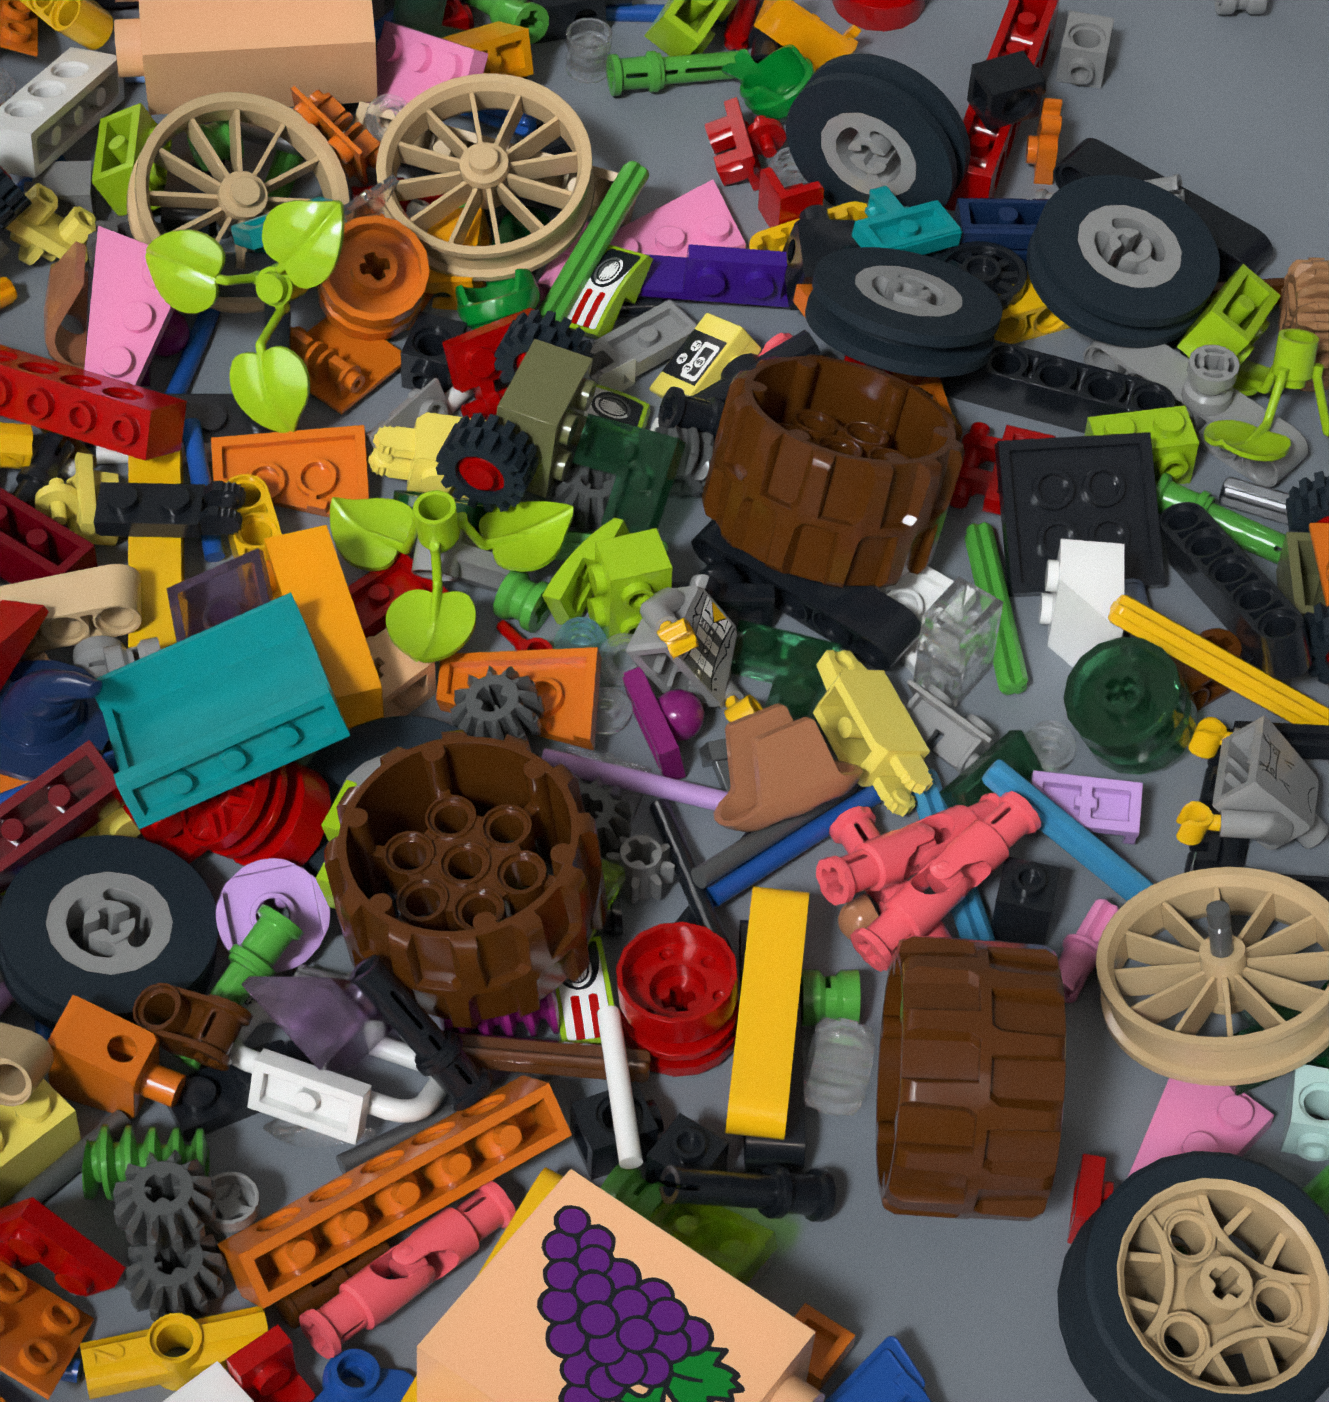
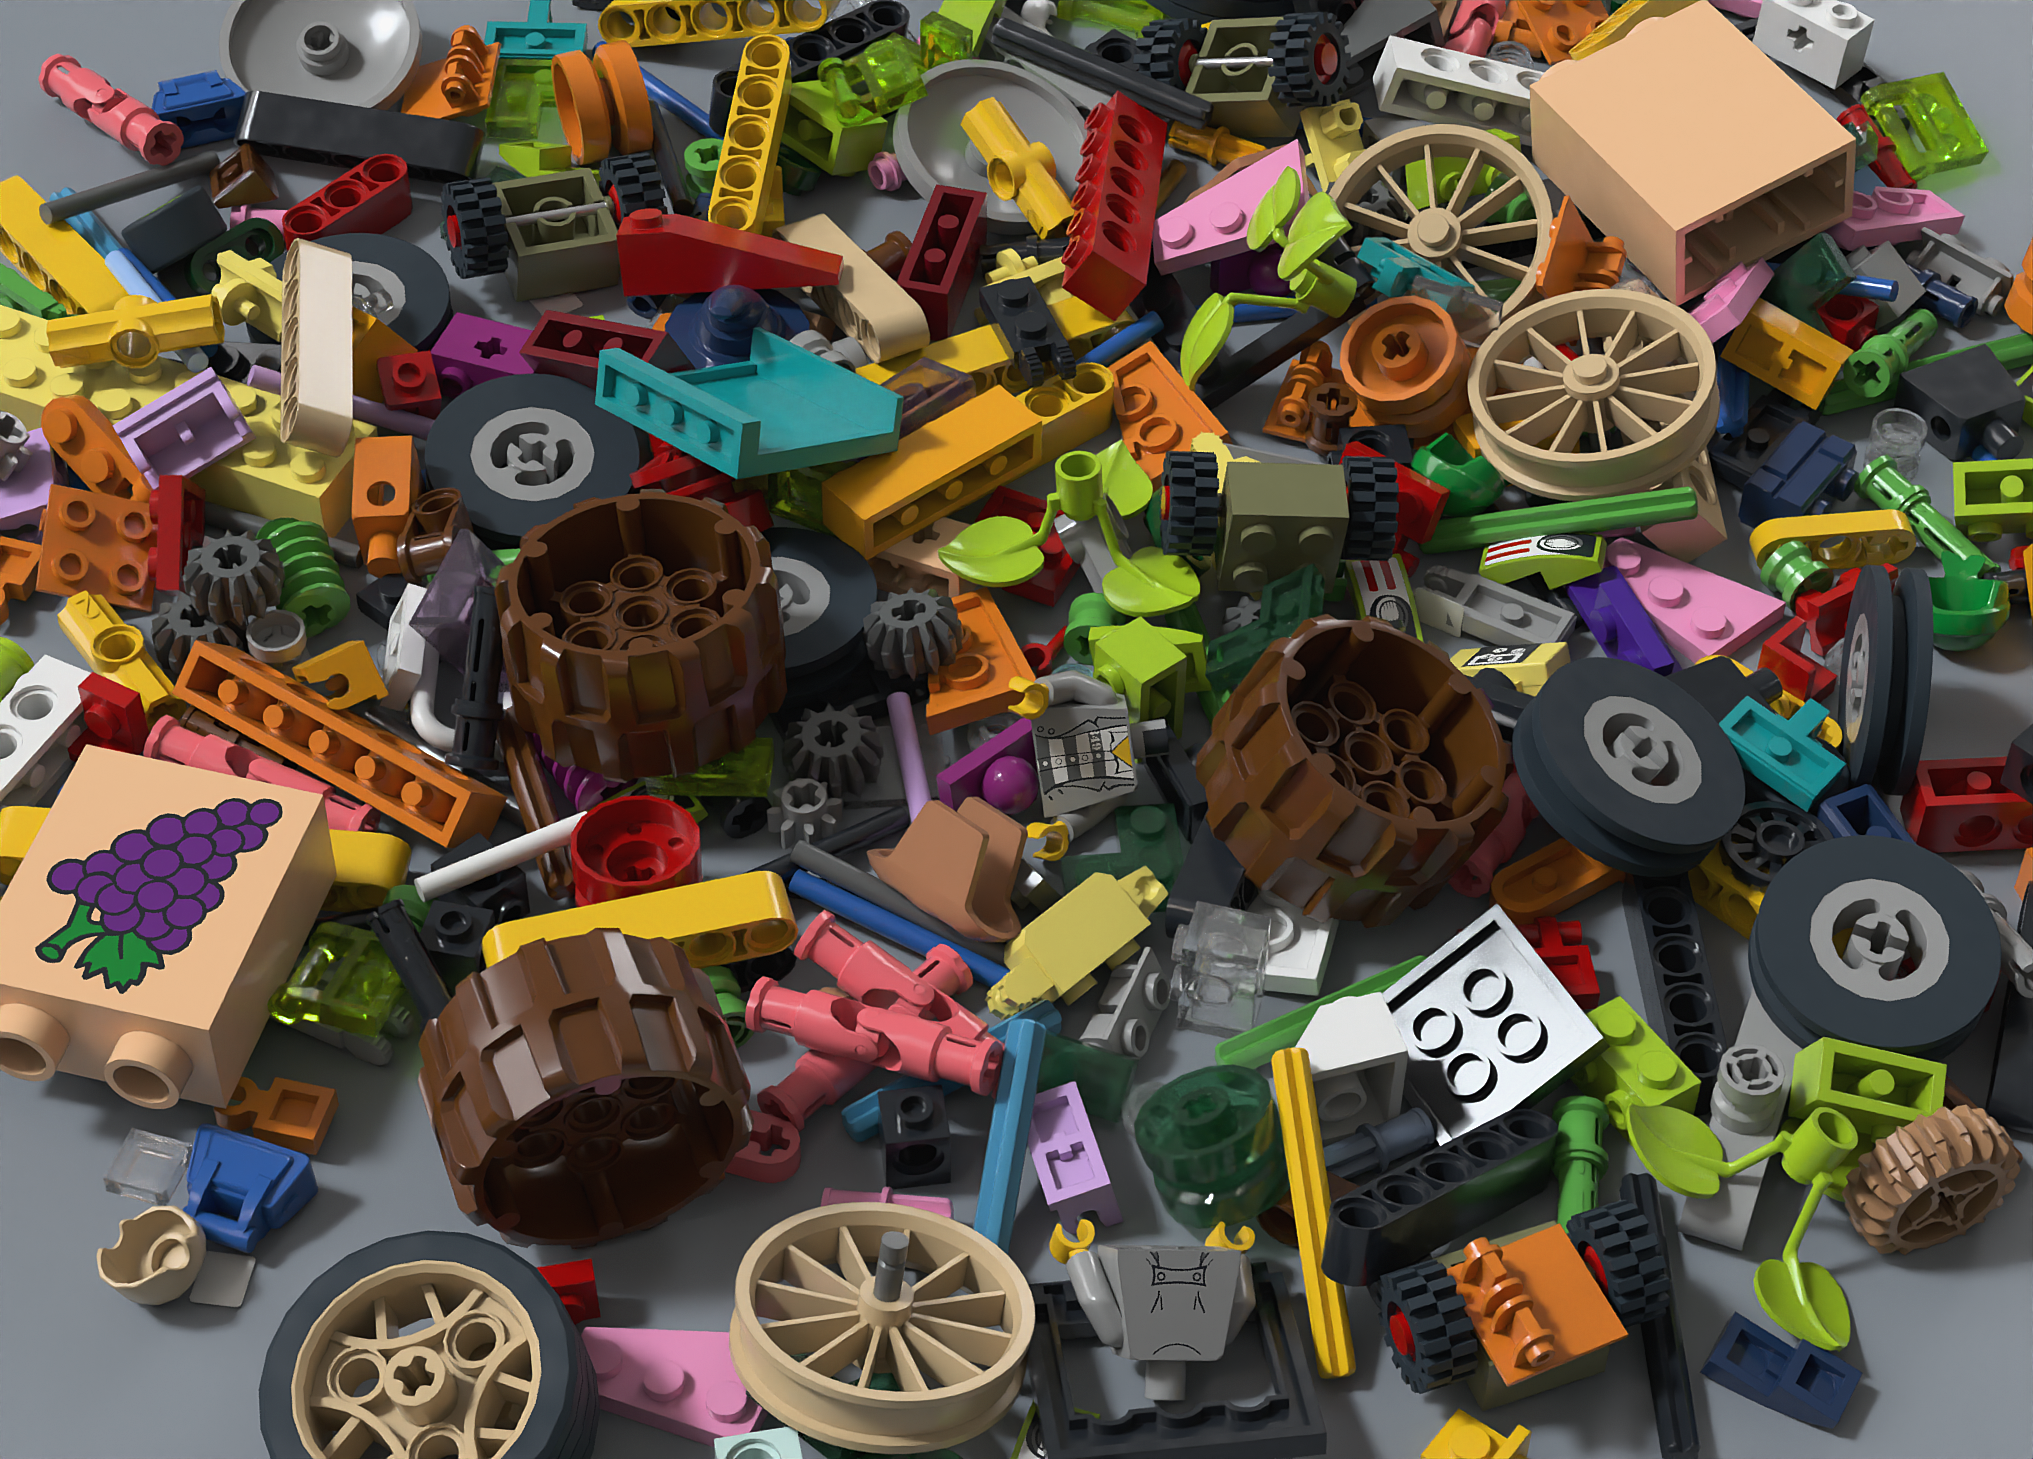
camera: 70 degrees right, 5 degrees down
(318, 1153) = (352, 672): none -> light orange hinge
(378, 353) = (1323, 417): none -> reddish brown bush
(612, 125) = (1800, 477): none -> dark blue brick
(667, 125) = (1883, 534): none -> yellow beam
(694, 160) = (1794, 572): none -> bright green wheel

